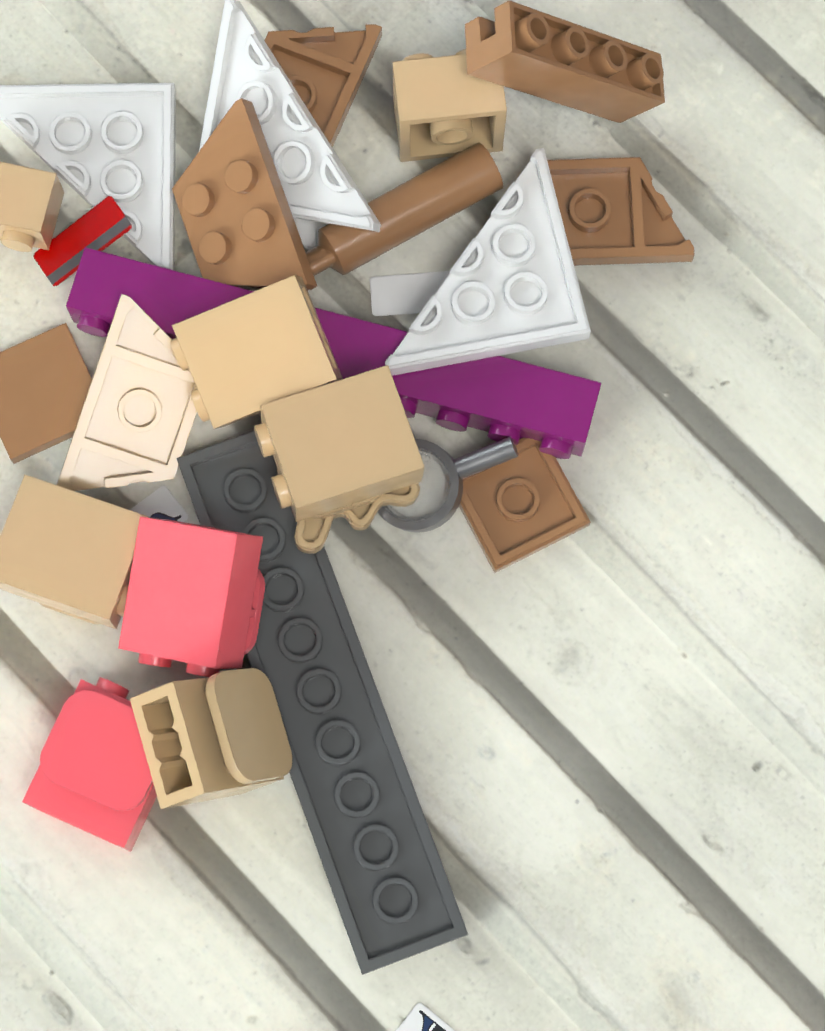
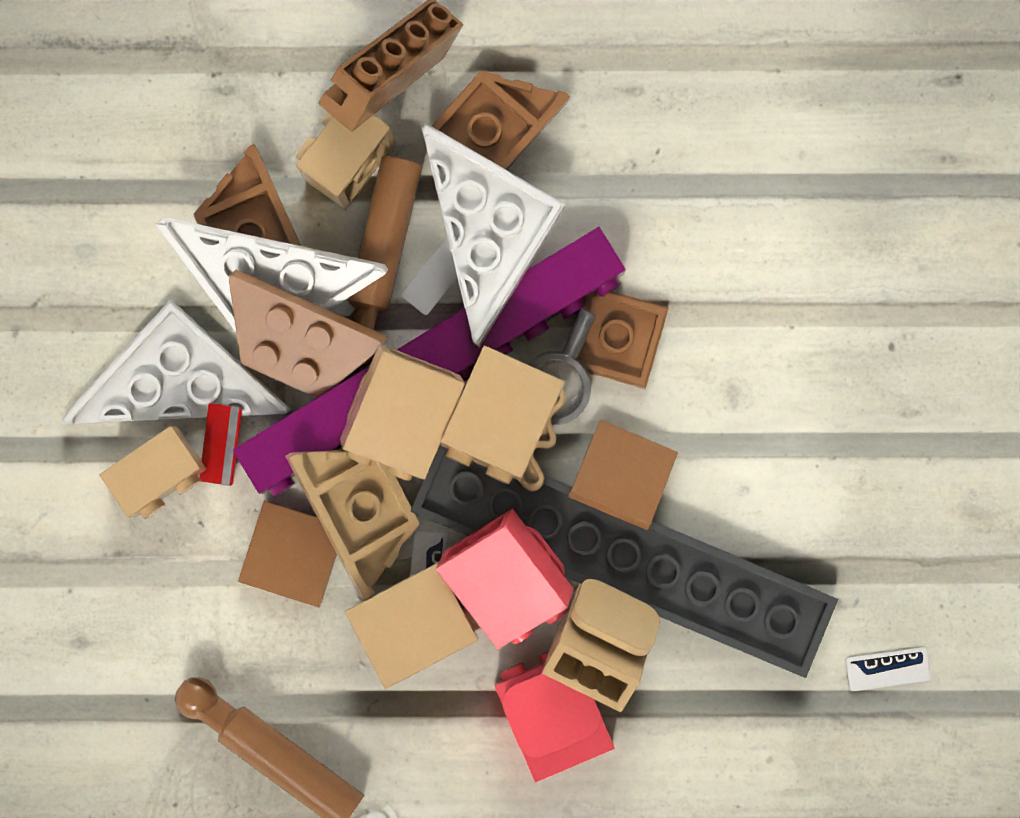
camera: 45 degrees left, 10 degrees up
(394, 620) = (623, 474): none -> medium nougat tile

